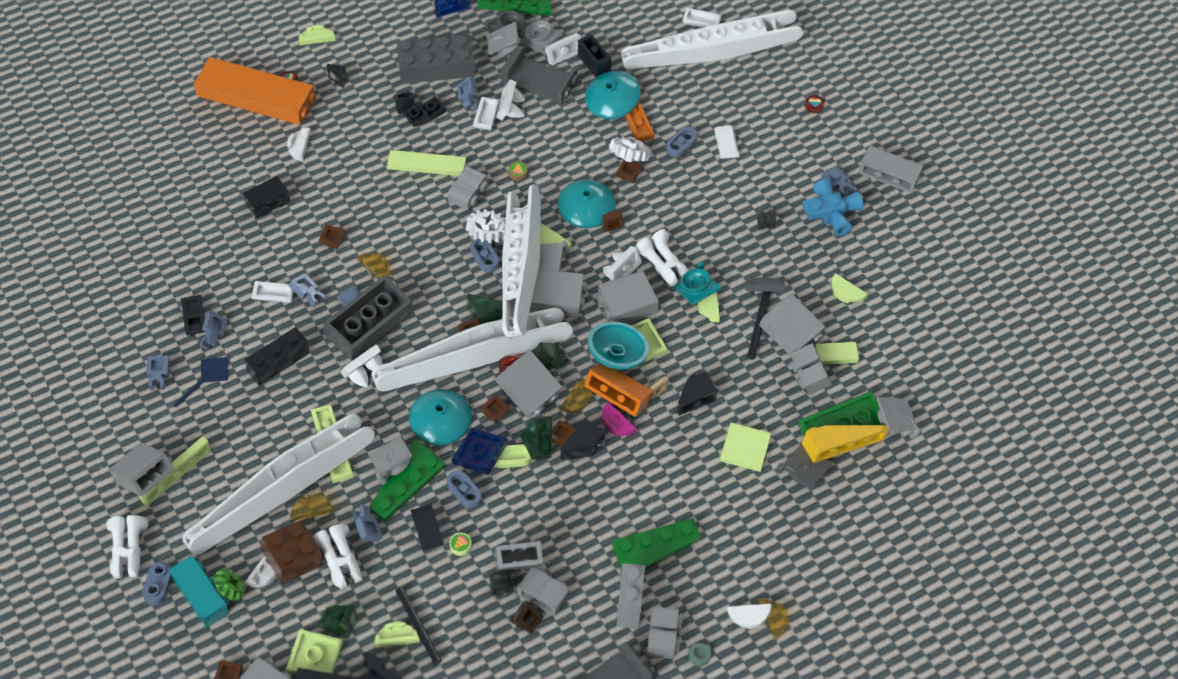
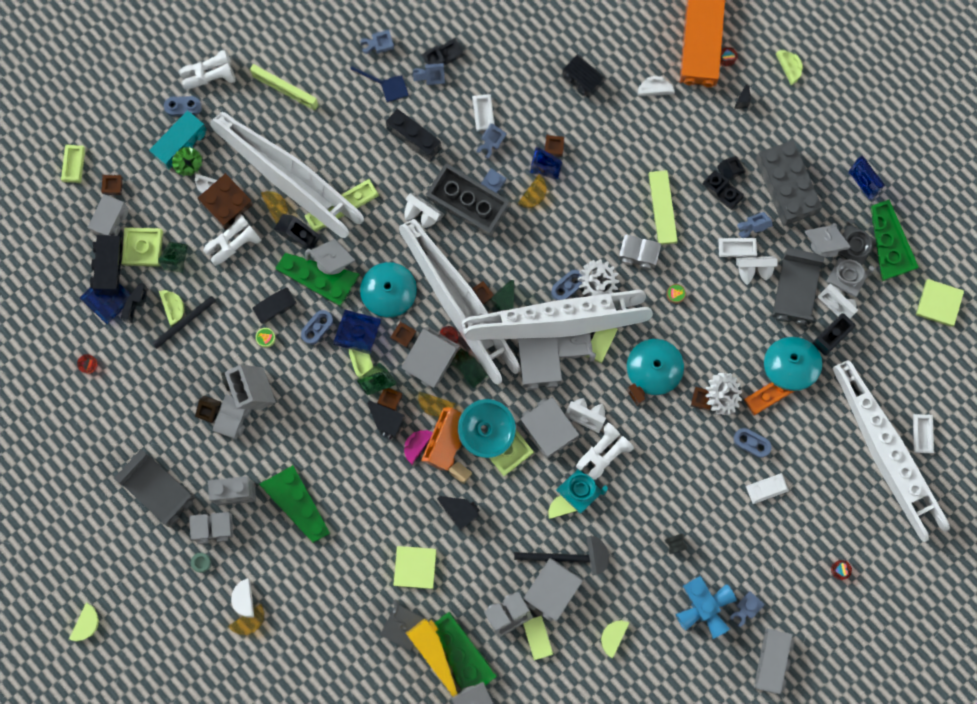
camera: 80 degrees right, 20 degrees up
(141, 469) = (273, 59): light grey brick -> none
(347, 249) = (545, 164): none -> clear blue slope
(348, 488) = (297, 232): none -> black slope
(367, 527) = (263, 257): sand blue plate -> none

